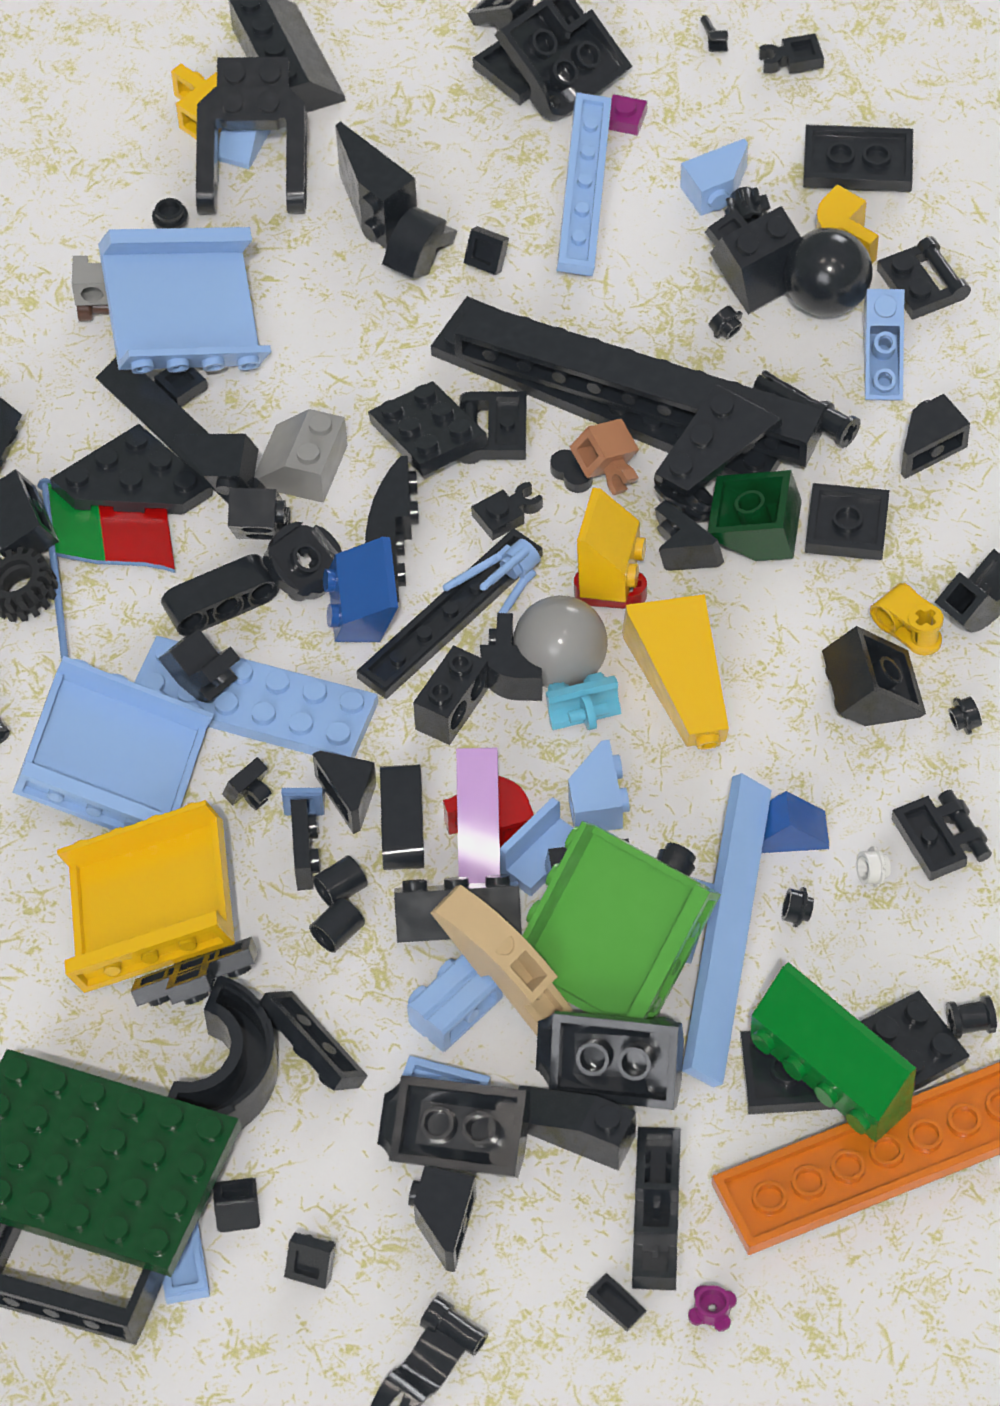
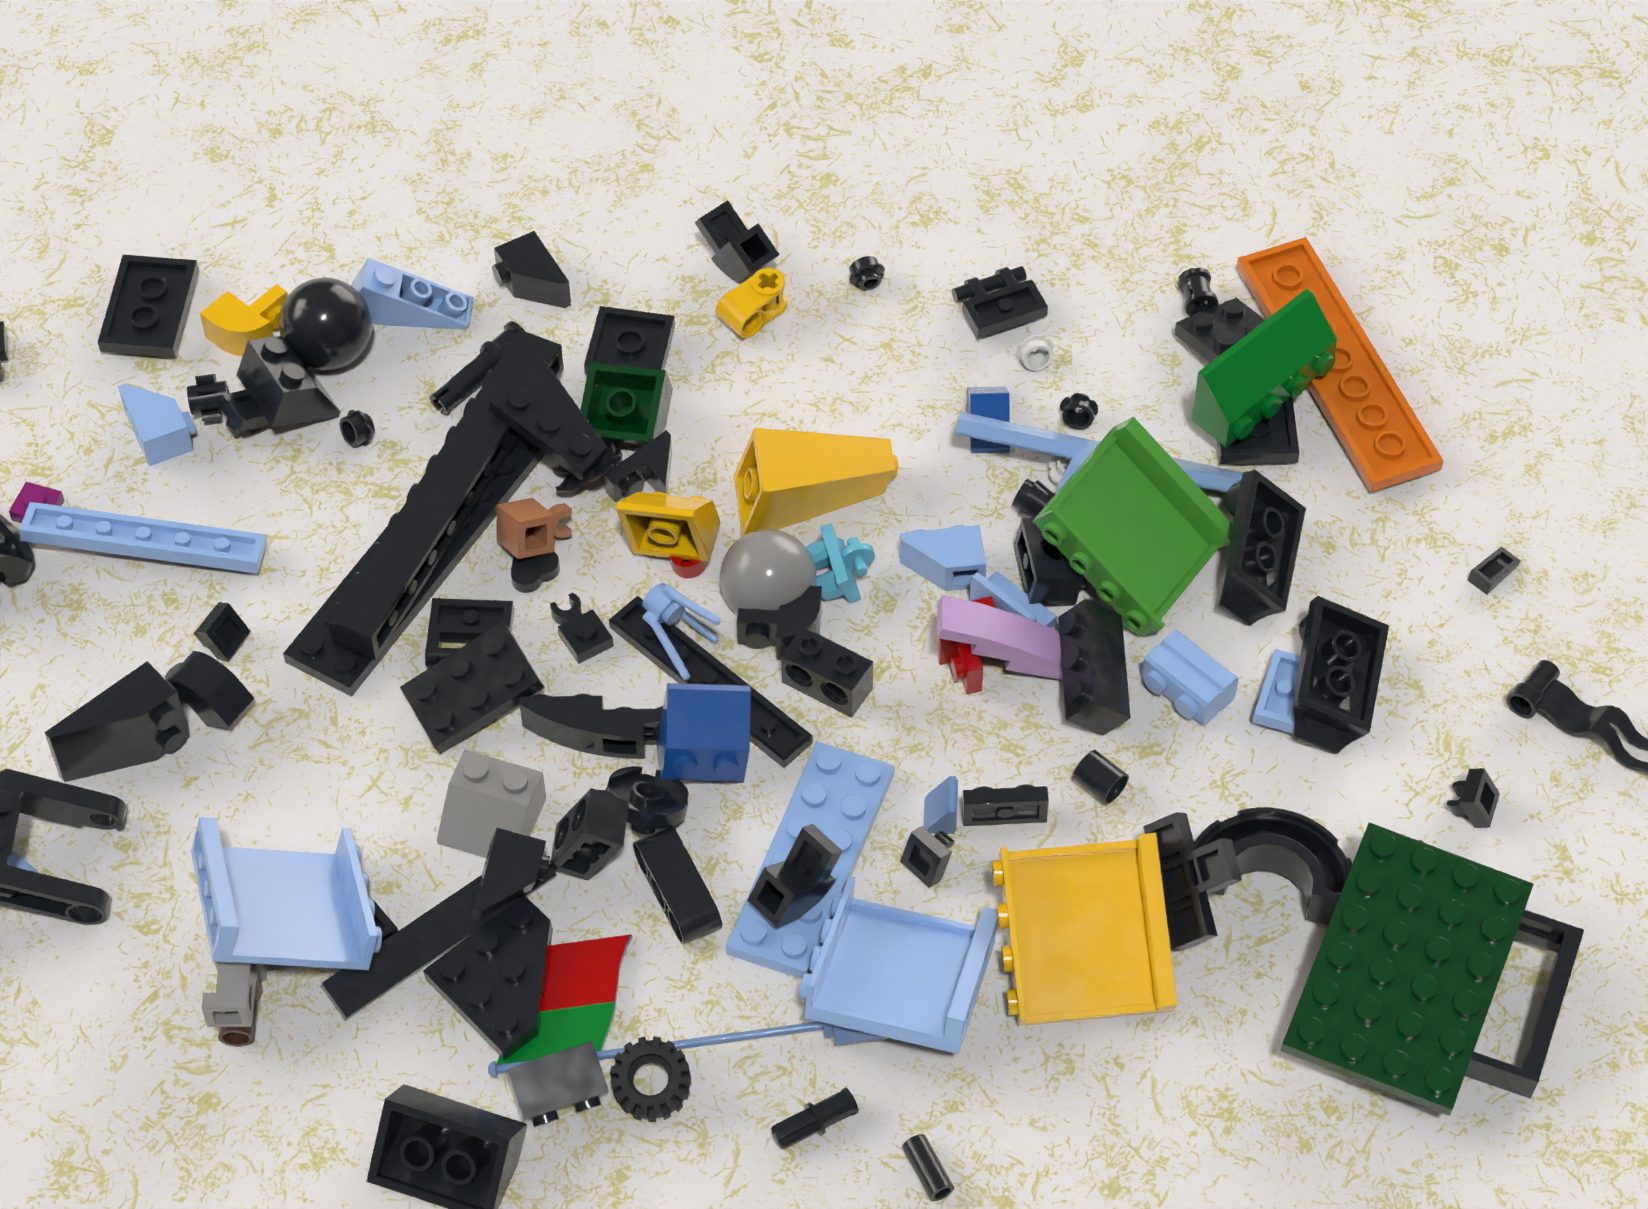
camera: 90 degrees left, 0 degrees up
(169, 214) = (104, 947): black plate -> none
(312, 1041) = (1242, 793): black plate -> none
(340, 880) = (1048, 770): black beam -> none
(348, 785) = (935, 760): black slope -> none
(401, 817) = (971, 720): black beam -> none
(443, 1211) = (1423, 690): black slope -> none
(502, 953) = (1162, 615): tan slope -> none
(582, 1124) = (1322, 575): black slope -> none
(656, 1209) = (1391, 531): black slope -> none
(715, 1296) = (1500, 488): magenta plate -> none
(872, 679) = (827, 338): black slope -> none
(920, 291) = (341, 266): black plate -> none

